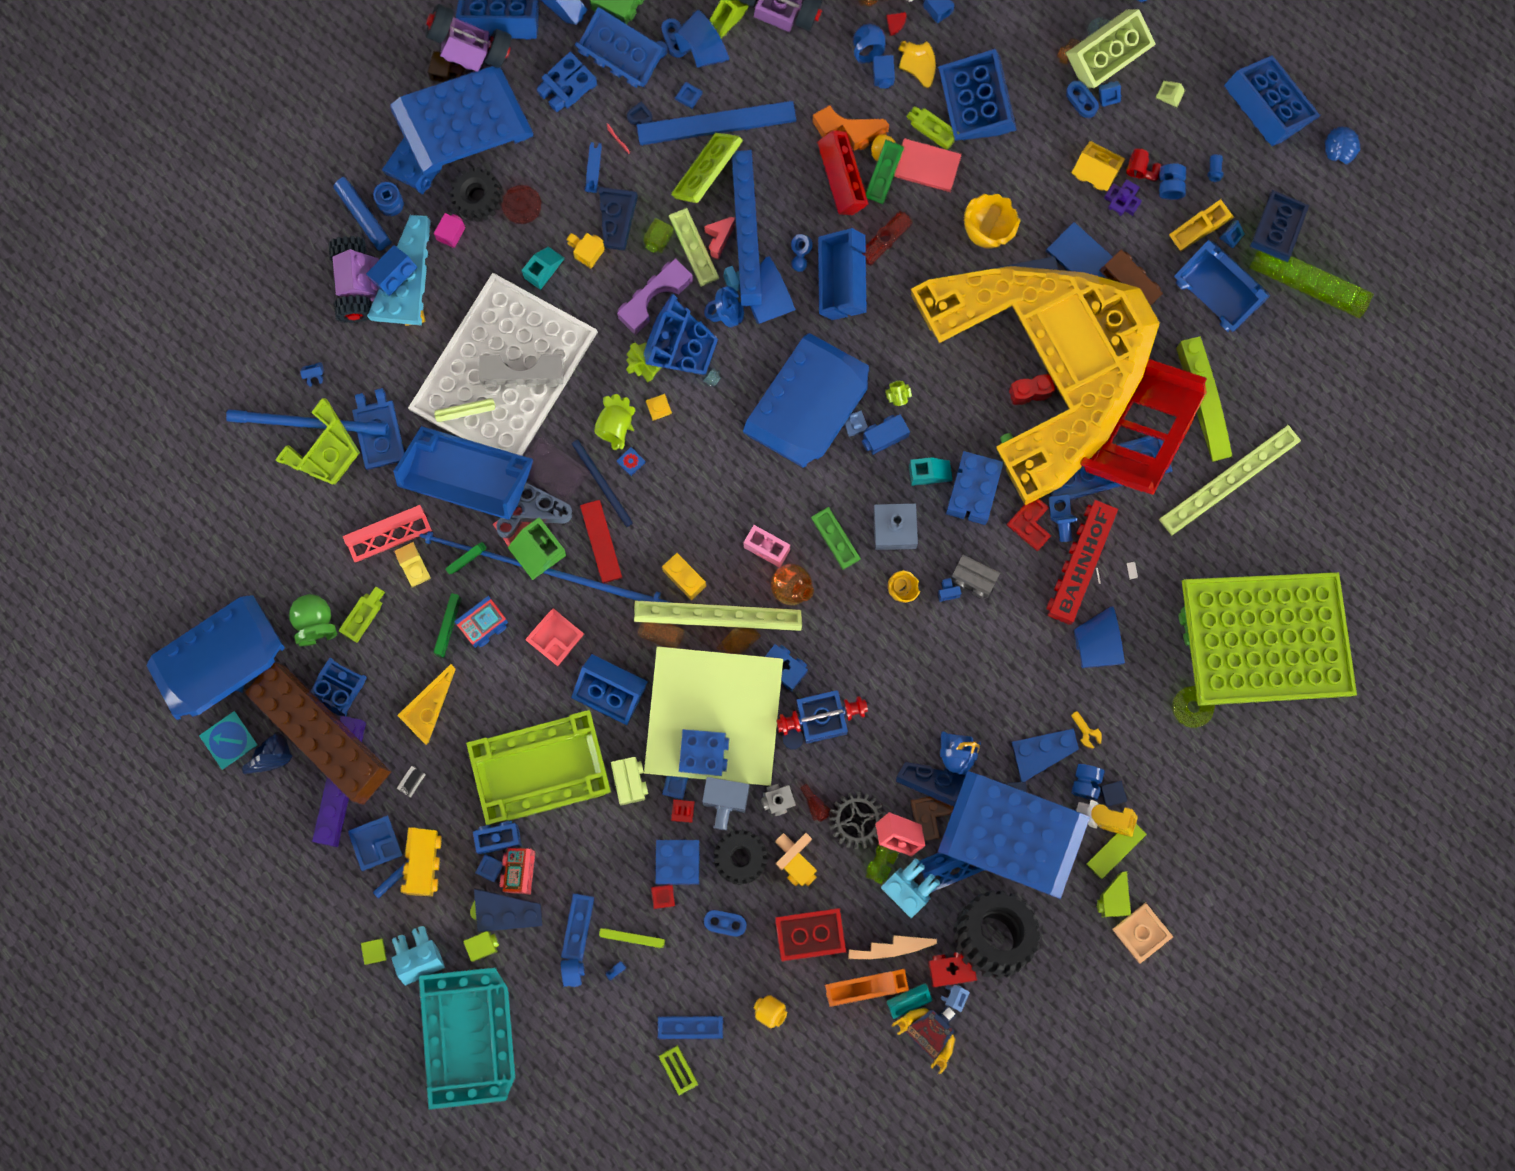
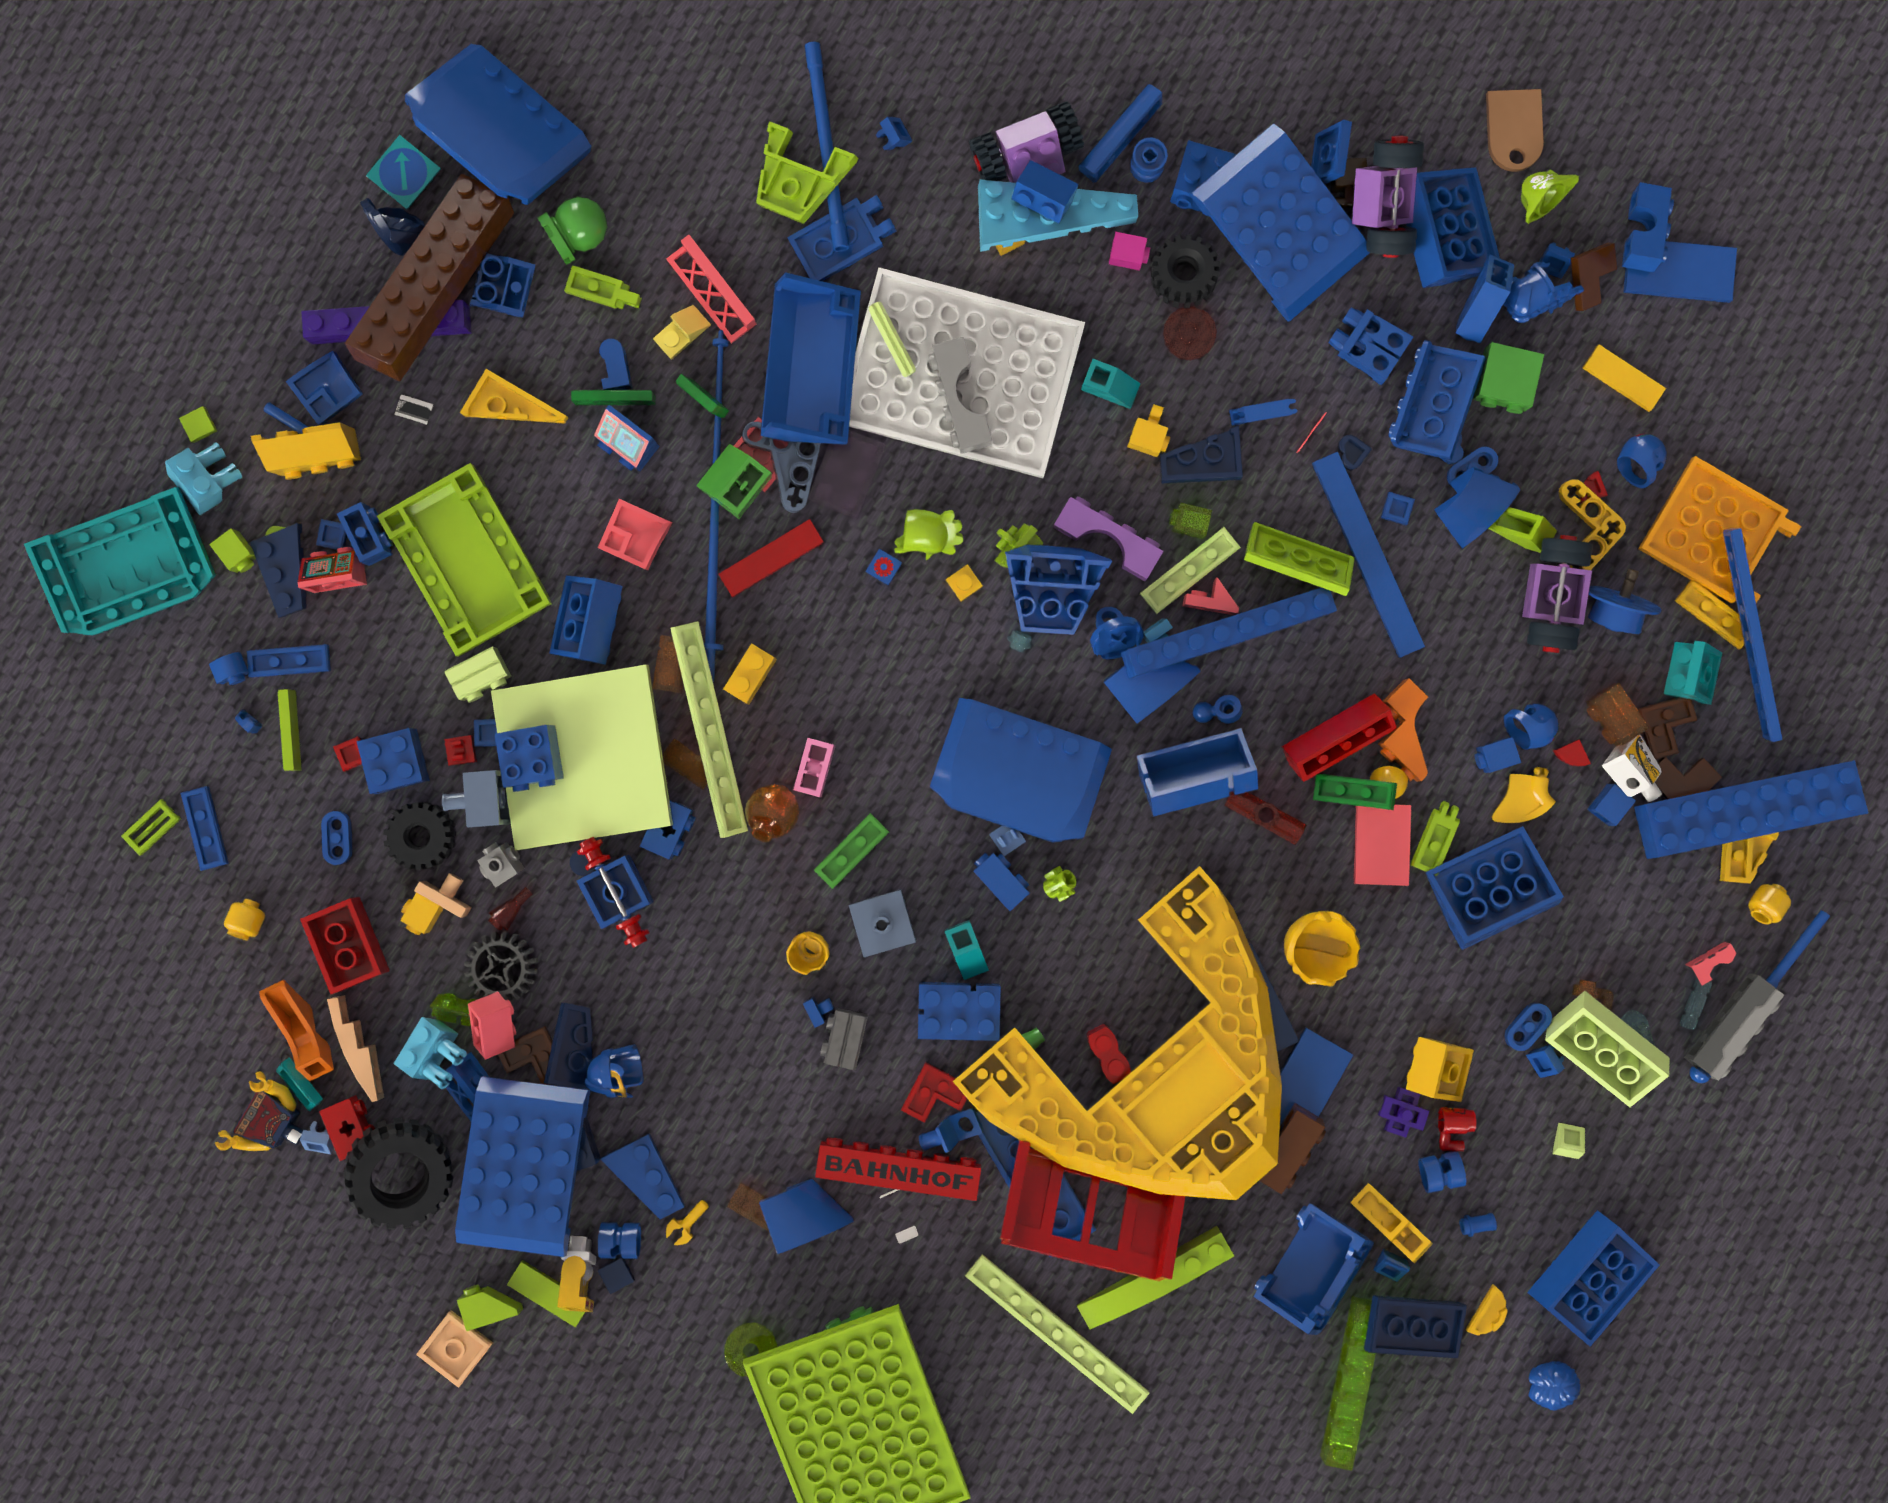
camera: 75 degrees right, 10 degrees up
(421, 71) = (1331, 151): none -> blue tile
(424, 617) = (616, 365): none -> blue leg
(602, 483) = (846, 539): dark blue piece -> none
(1084, 679) = (746, 1203): none -> clear orange tile
(1282, 176) = (1490, 1313): none -> yellow tile

